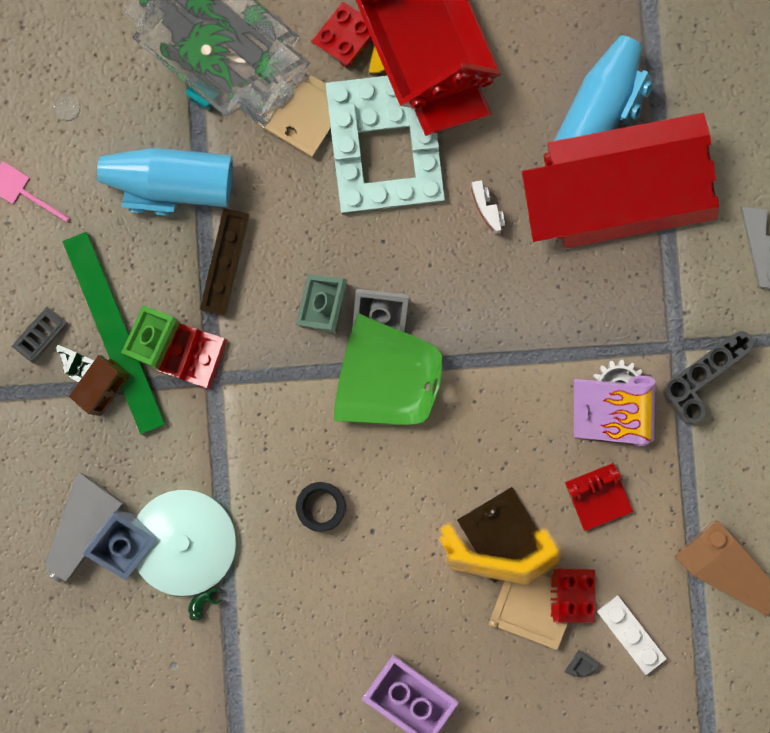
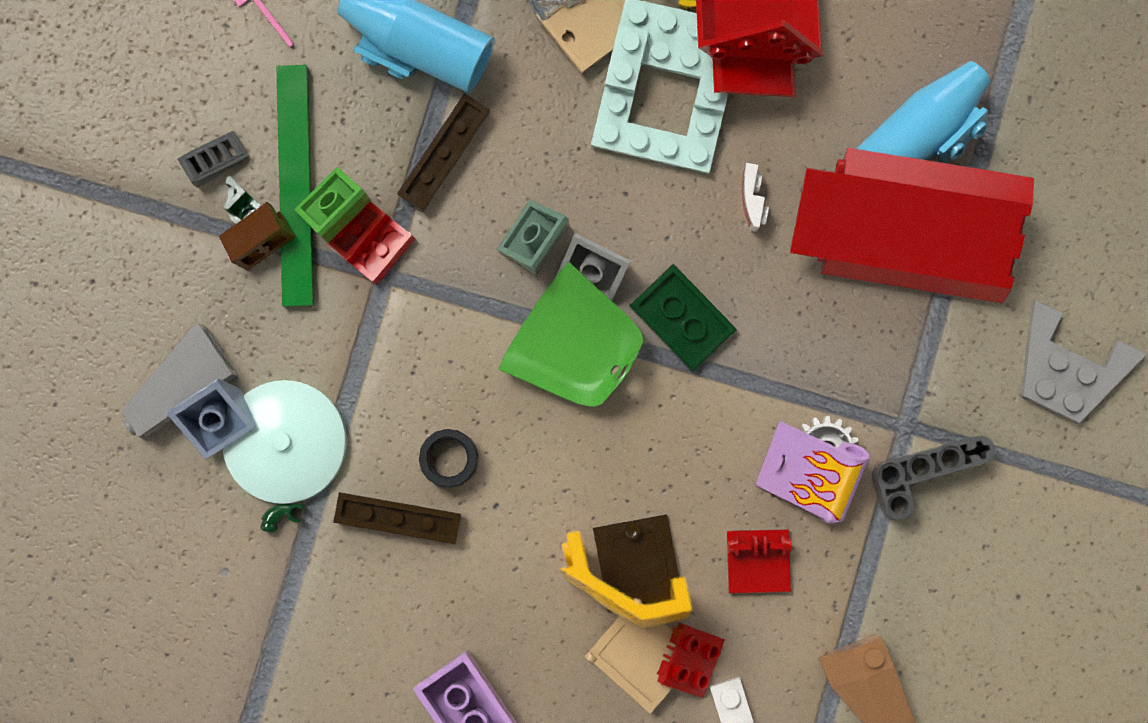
camera: 25 degrees right, 0 degrees up
(297, 570) = (397, 518): none -> dark brown plate
(466, 324) = (682, 317): none -> dark green tile

